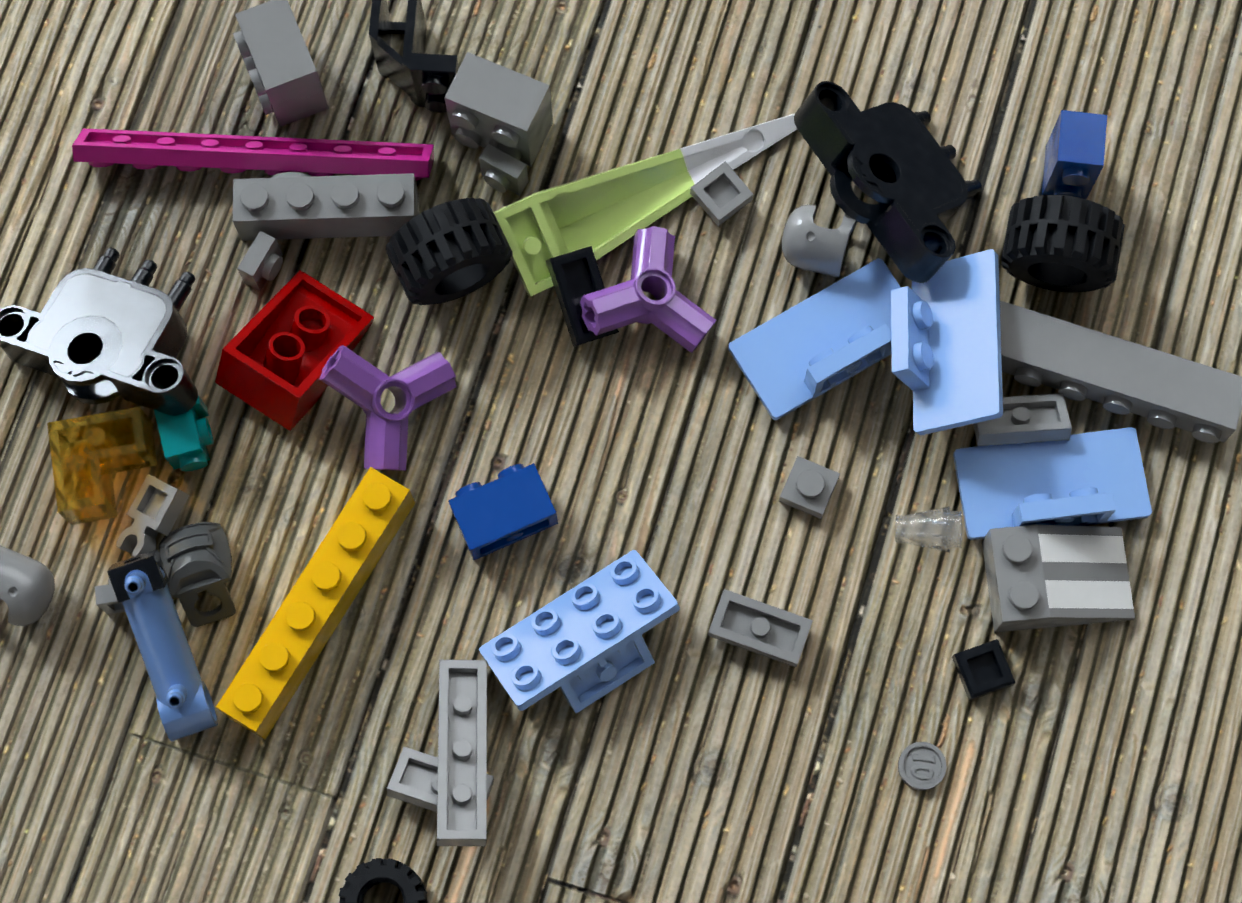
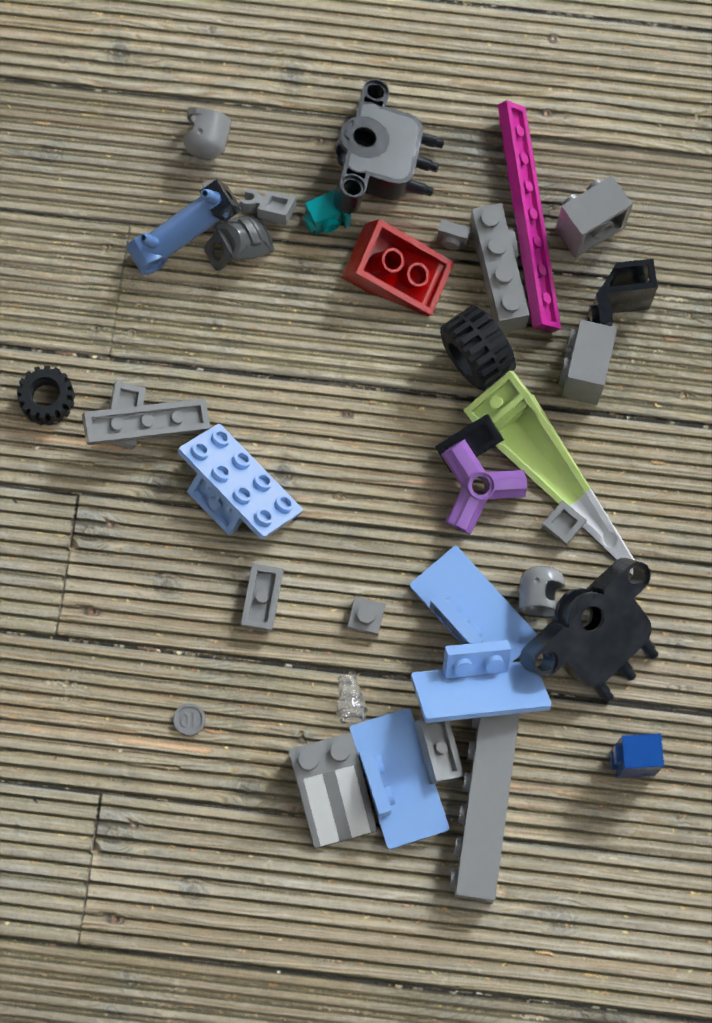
camera: 75 degrees right, 0 degrees up
(87, 454) = (297, 157): clear yellow brick -> none
(316, 603) = (229, 316): yellow brick -> none
(363, 385) = (351, 335): medium lavender piece -> none
(503, 170) = (548, 375): light grey plate -> none
(503, 510) = (311, 419): blue brick -> none
(983, 669) = (260, 750): black tile -> none
(1063, 243) = (567, 754): black tyre -> none

